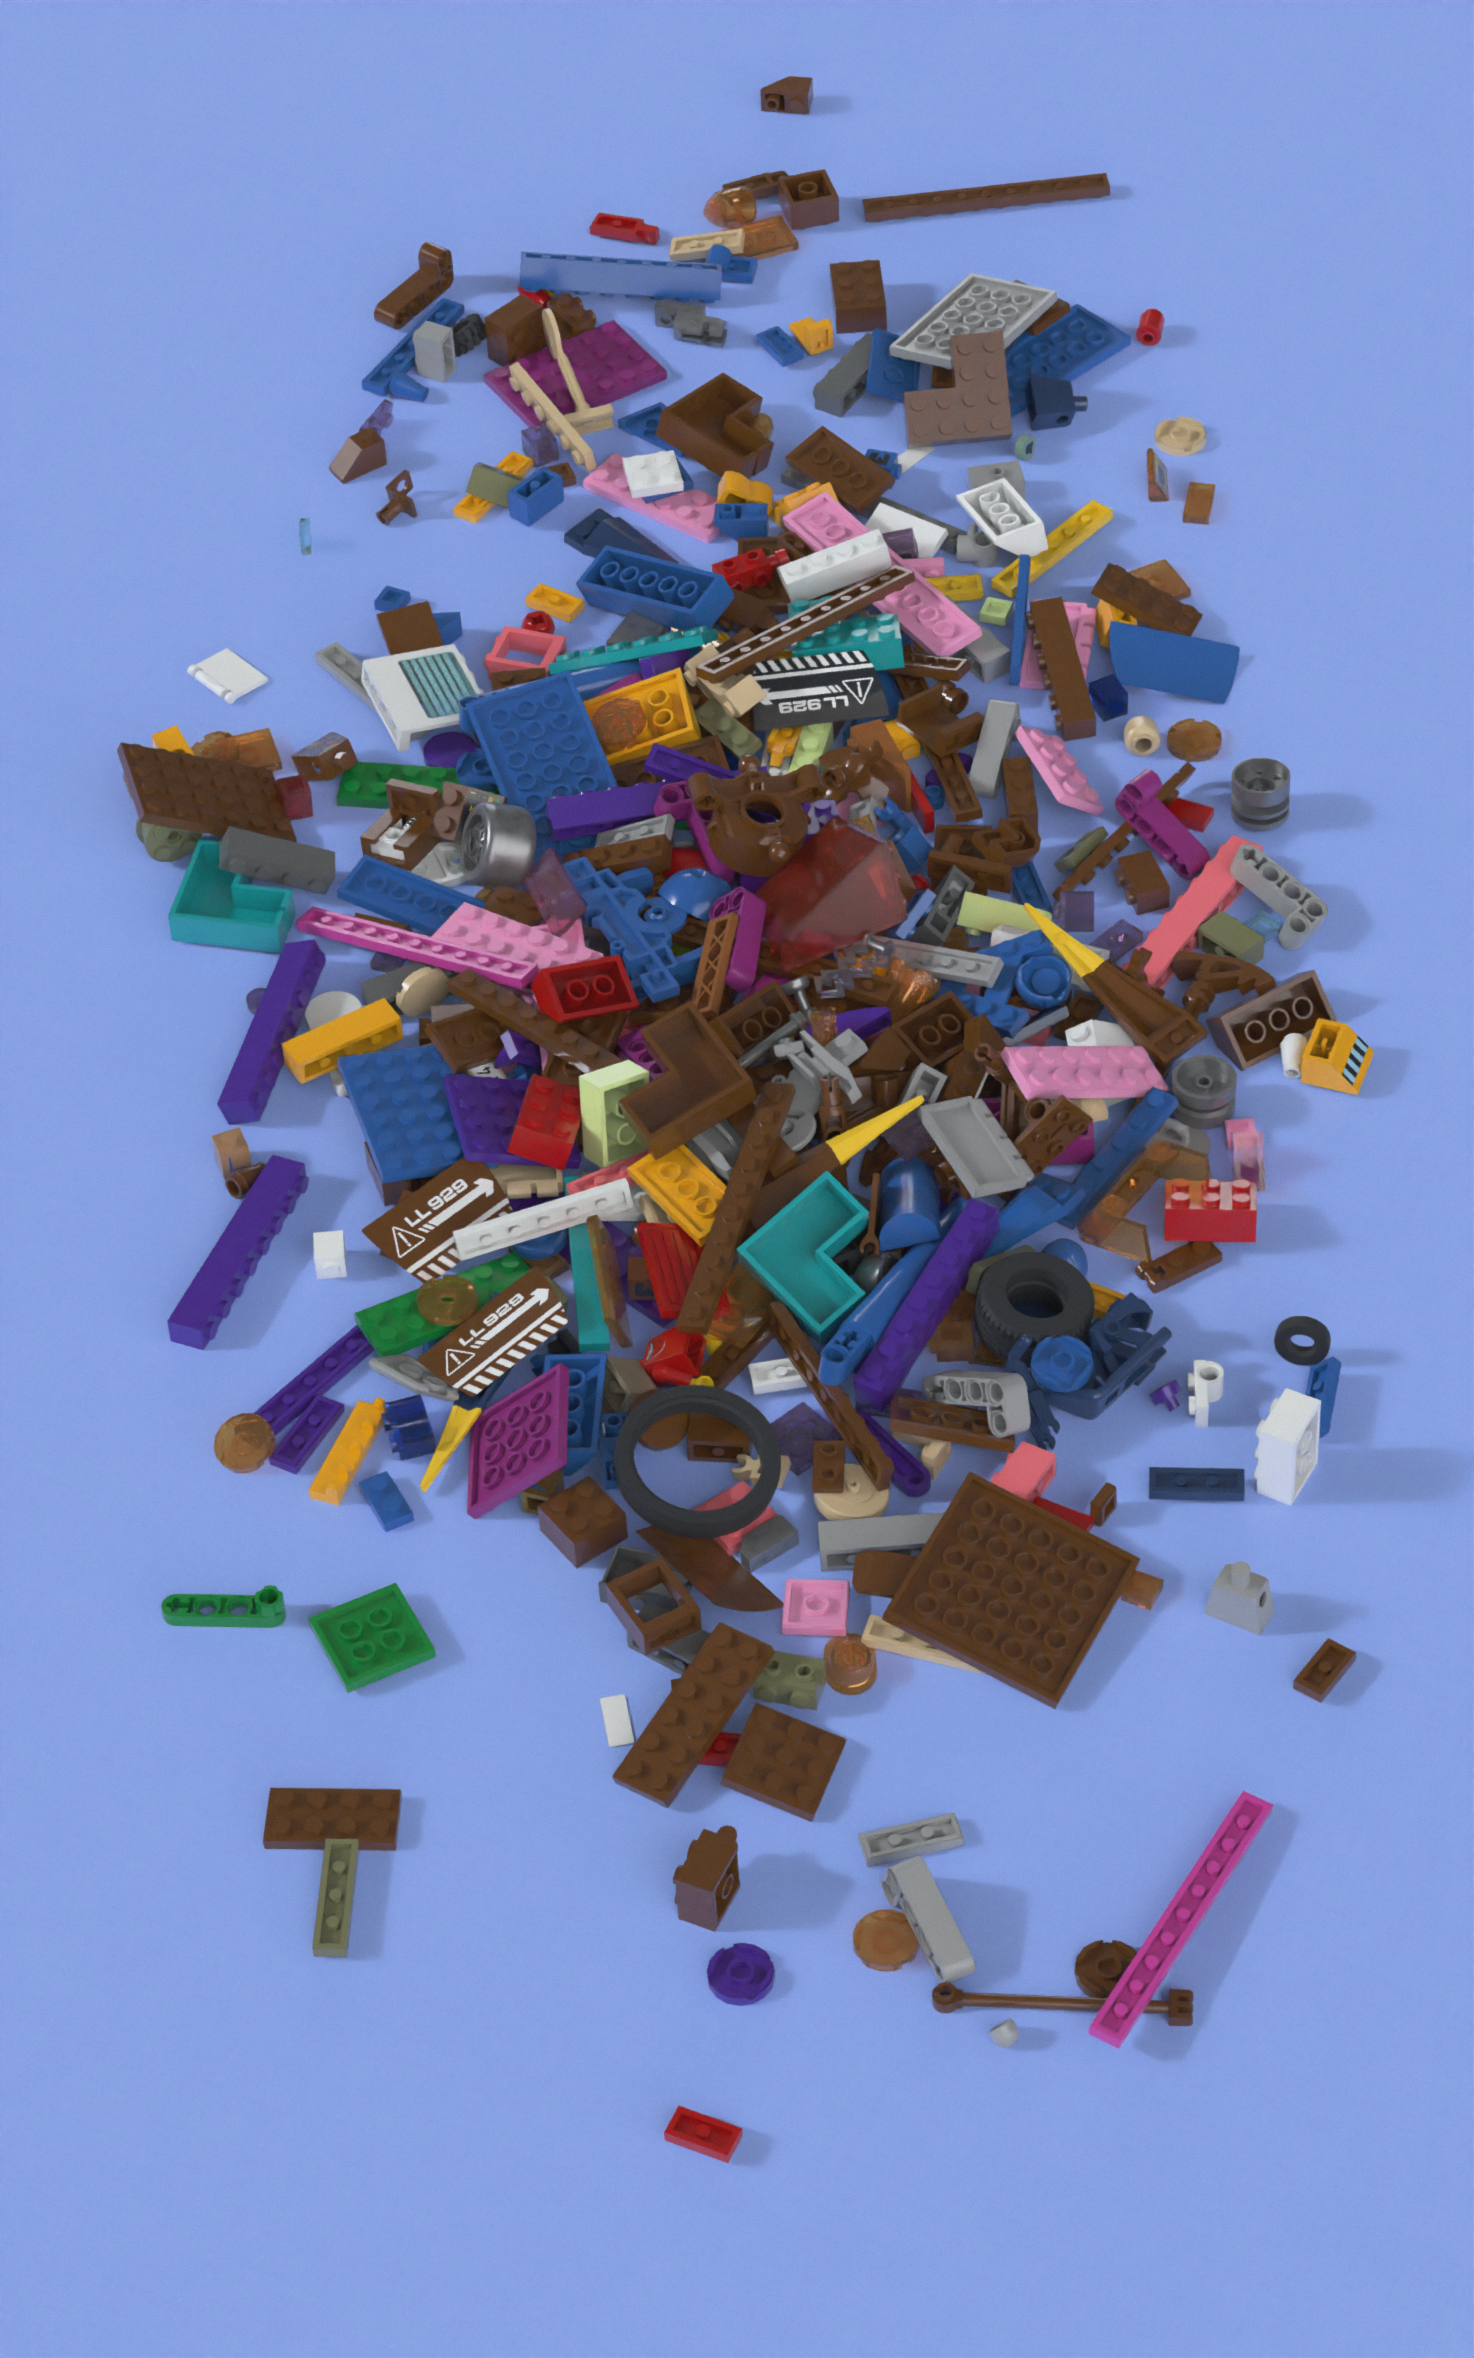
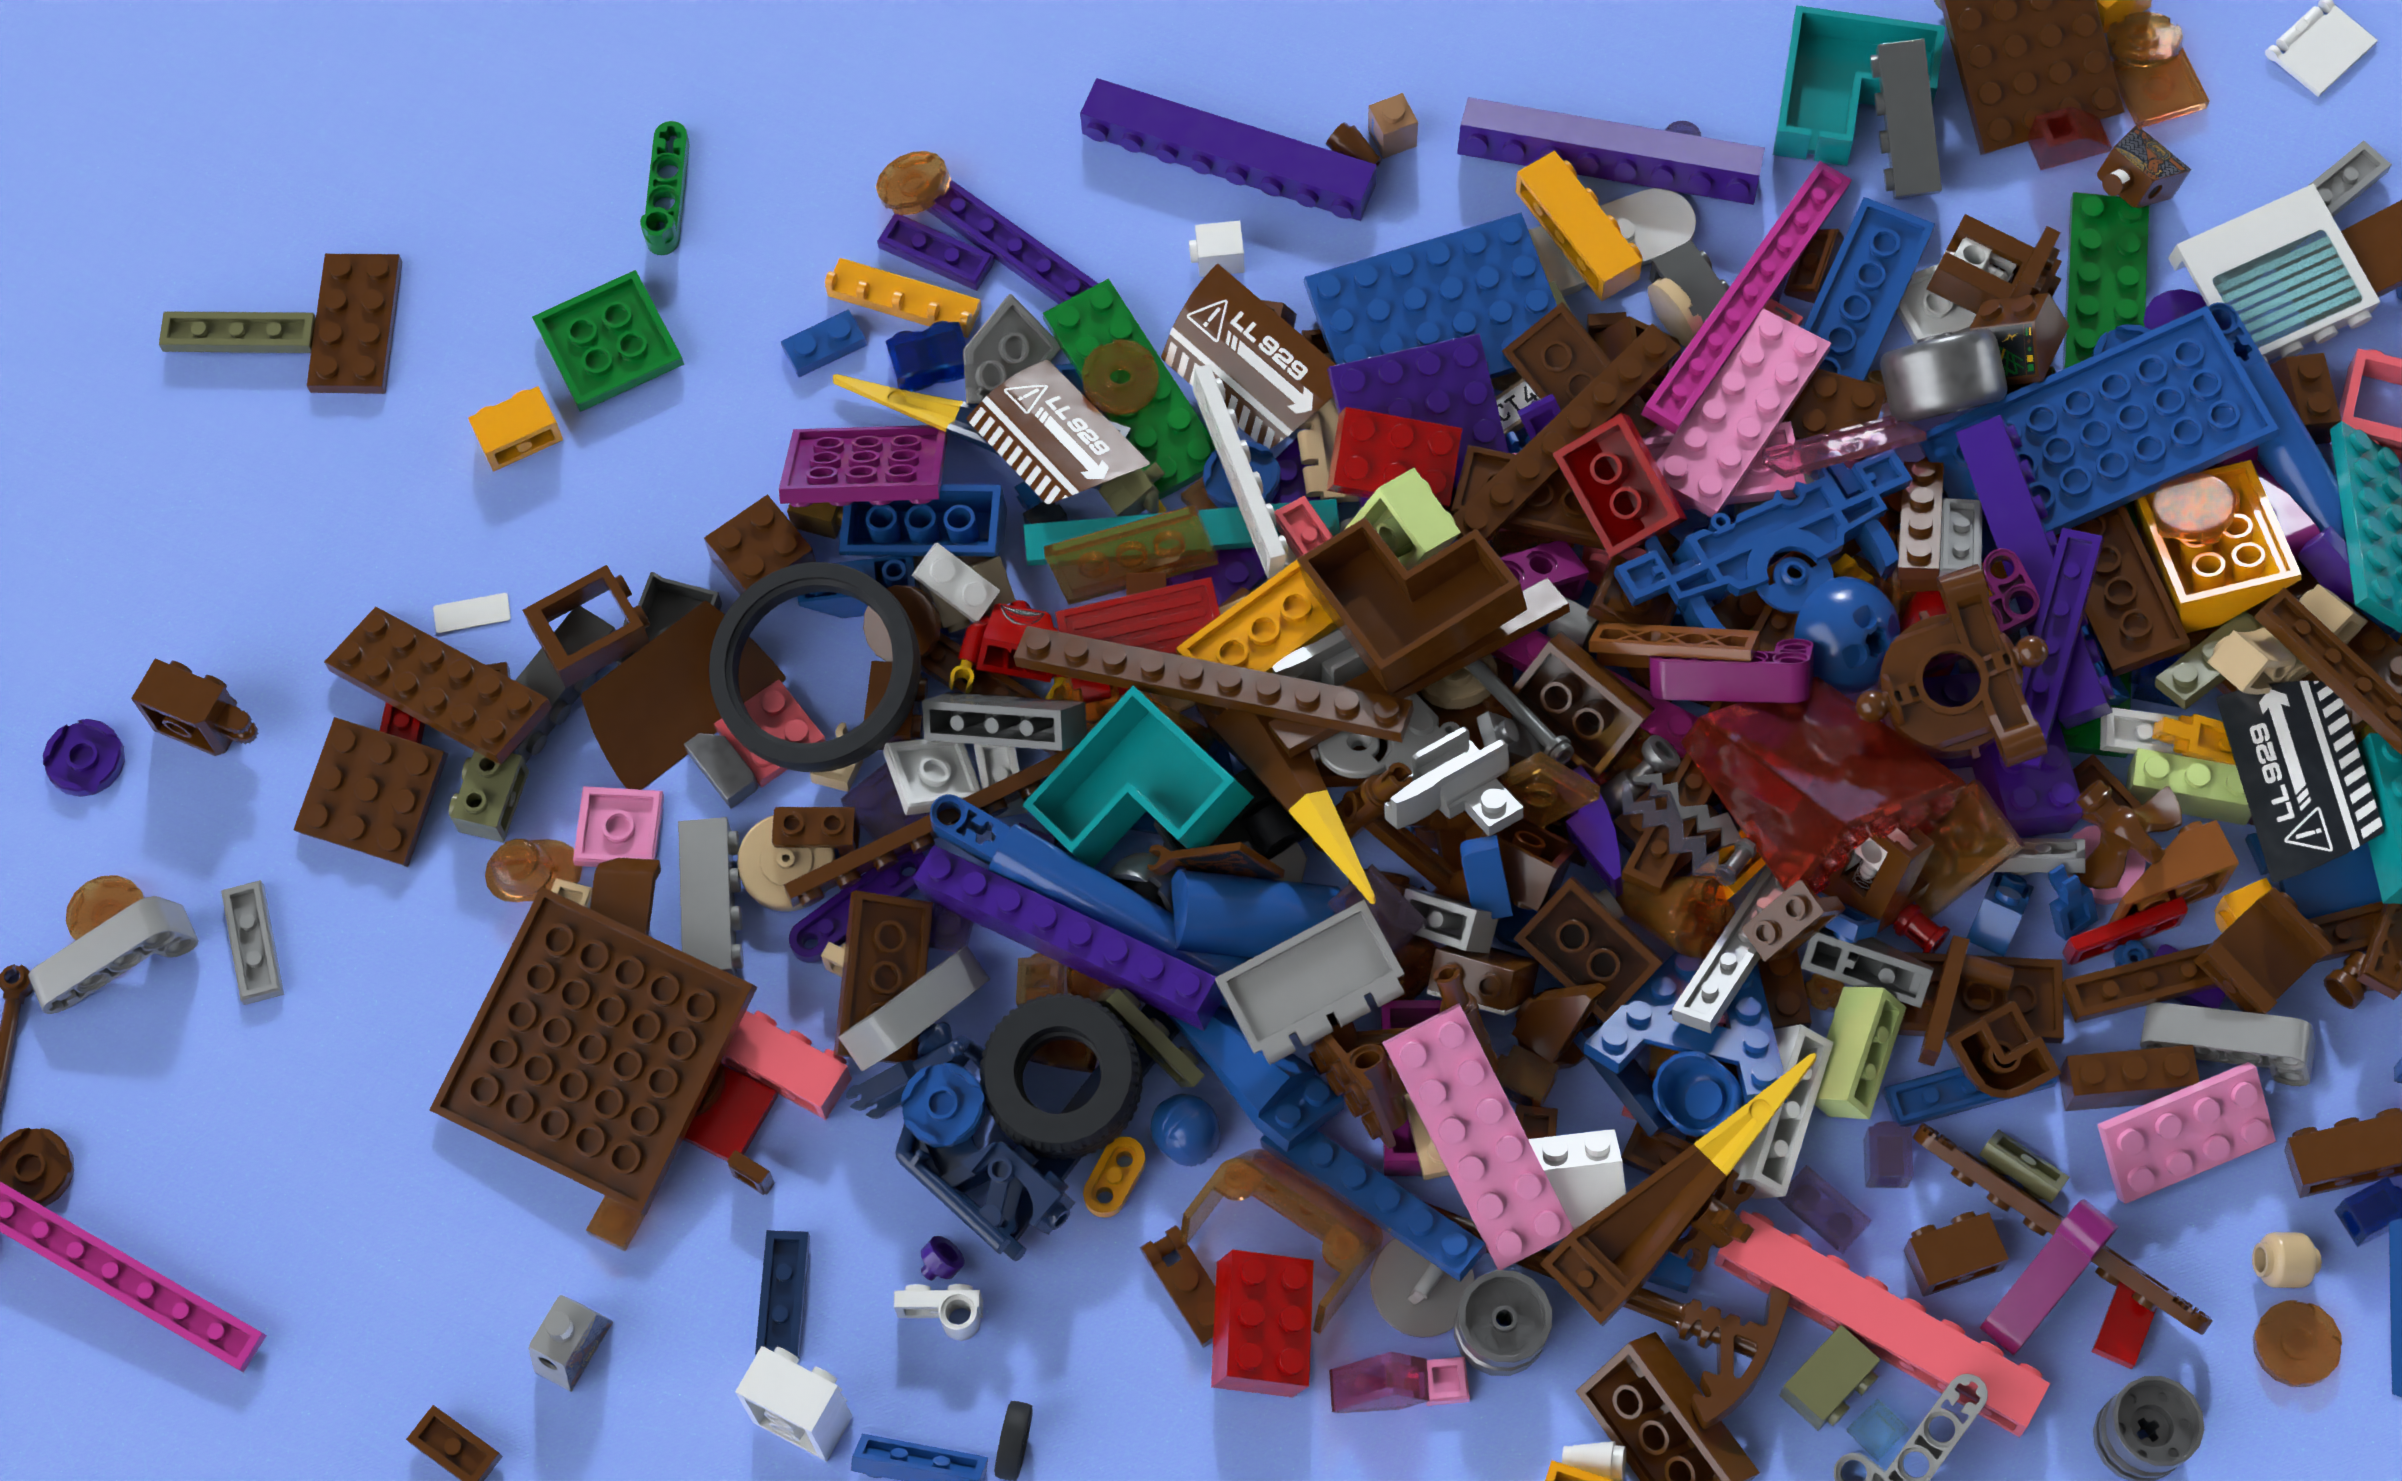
camera: 90 degrees right, 20 degrees up
(451, 1691) = (515, 428): none -> light orange brick
(631, 1375) = (955, 582): none -> white plate
(750, 1341) = (1004, 721): none -> dark grey brick
(785, 1404) = (928, 770): none -> white tile
(891, 1060) = (1486, 876): none -> blue piece
(925, 920) = (1791, 921): none -> bracket

